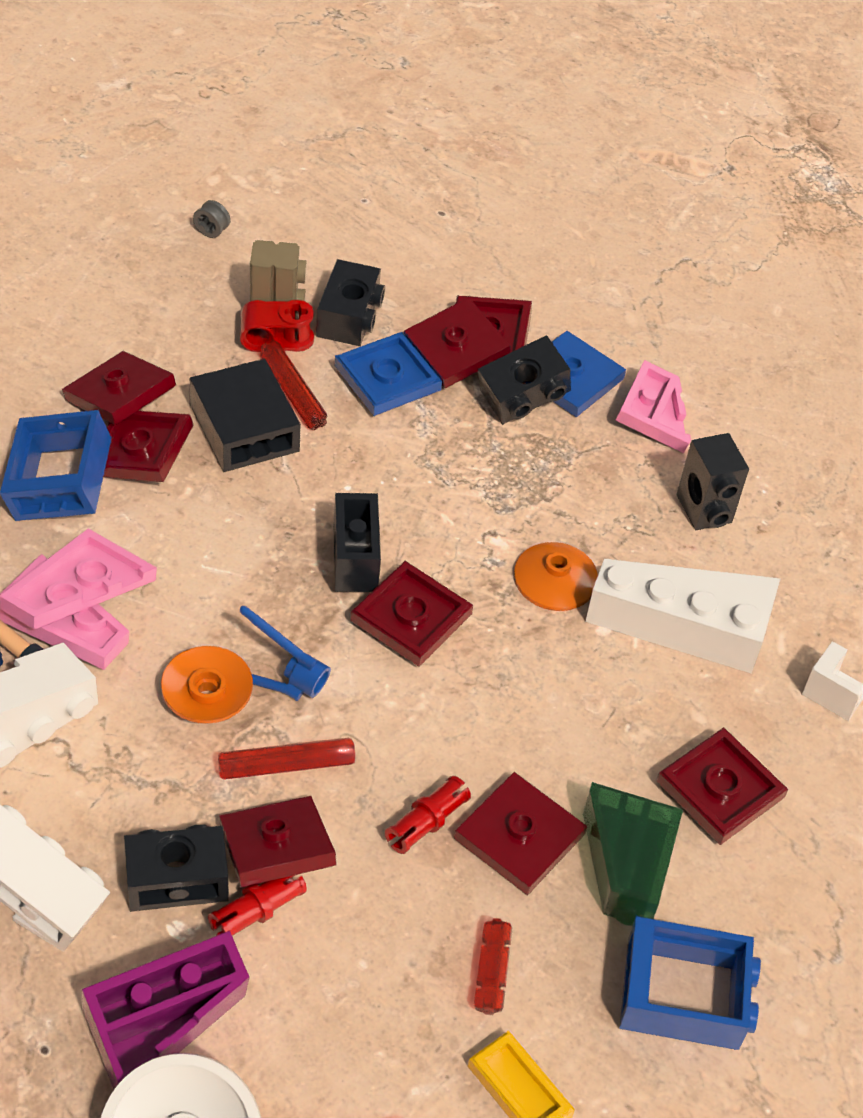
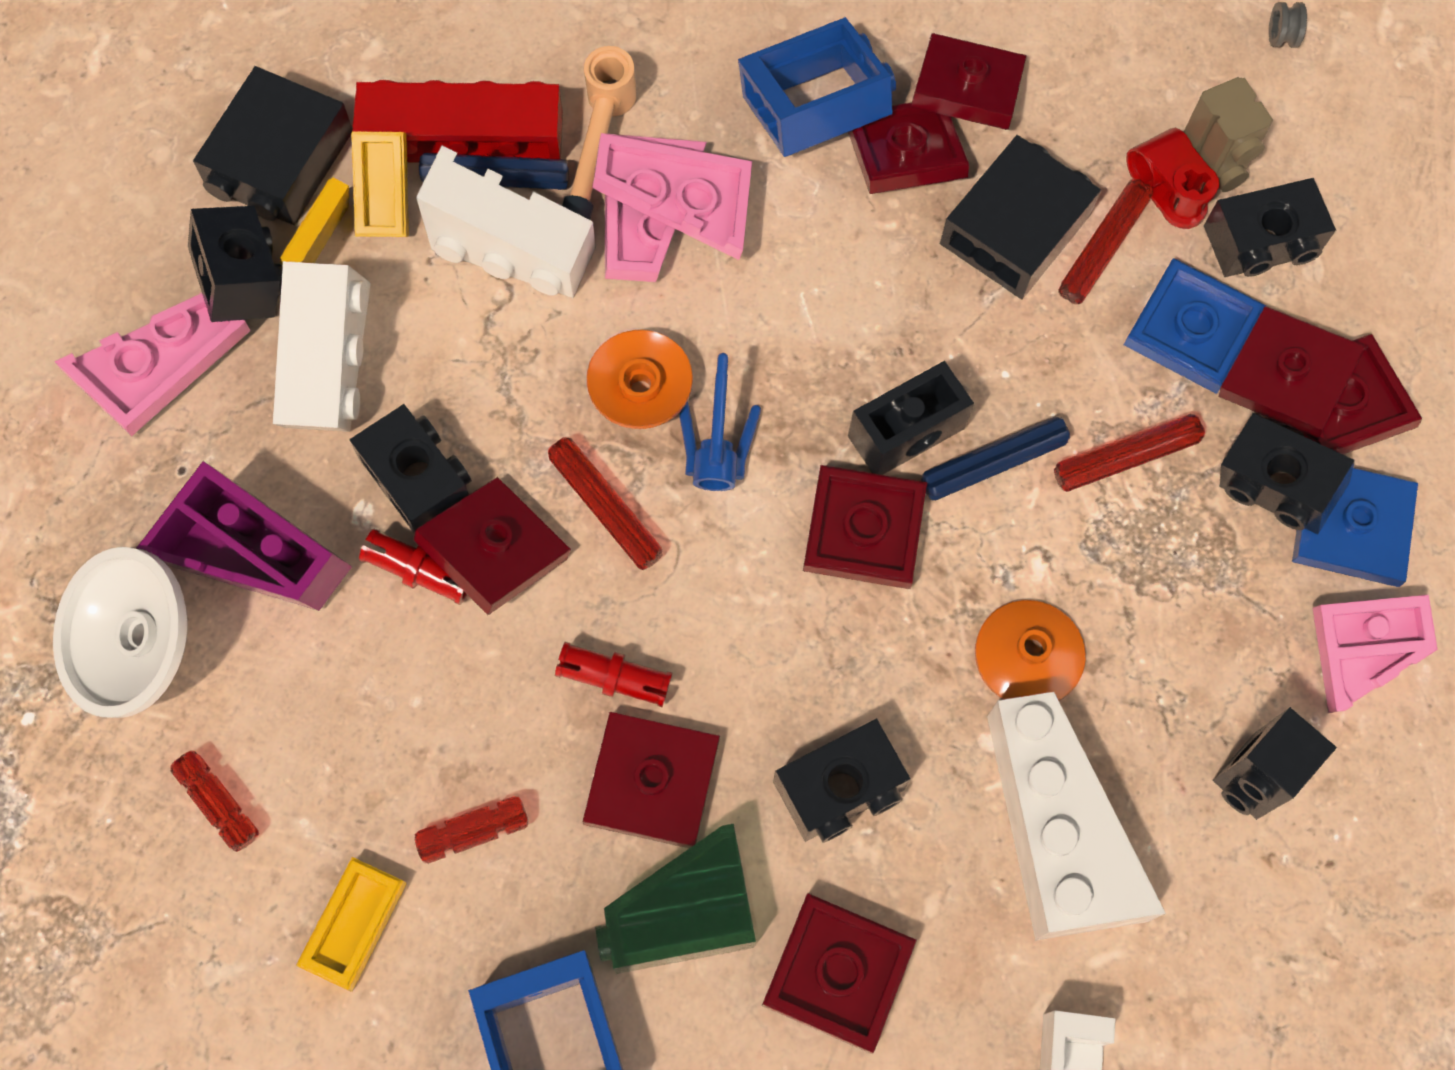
camera: 65 degrees right, 20 degrees up
(408, 518) = (995, 458): none -> dark blue axle
(452, 452) = (1129, 452): none -> clear red axle
(586, 737) = (862, 755): none -> black brick

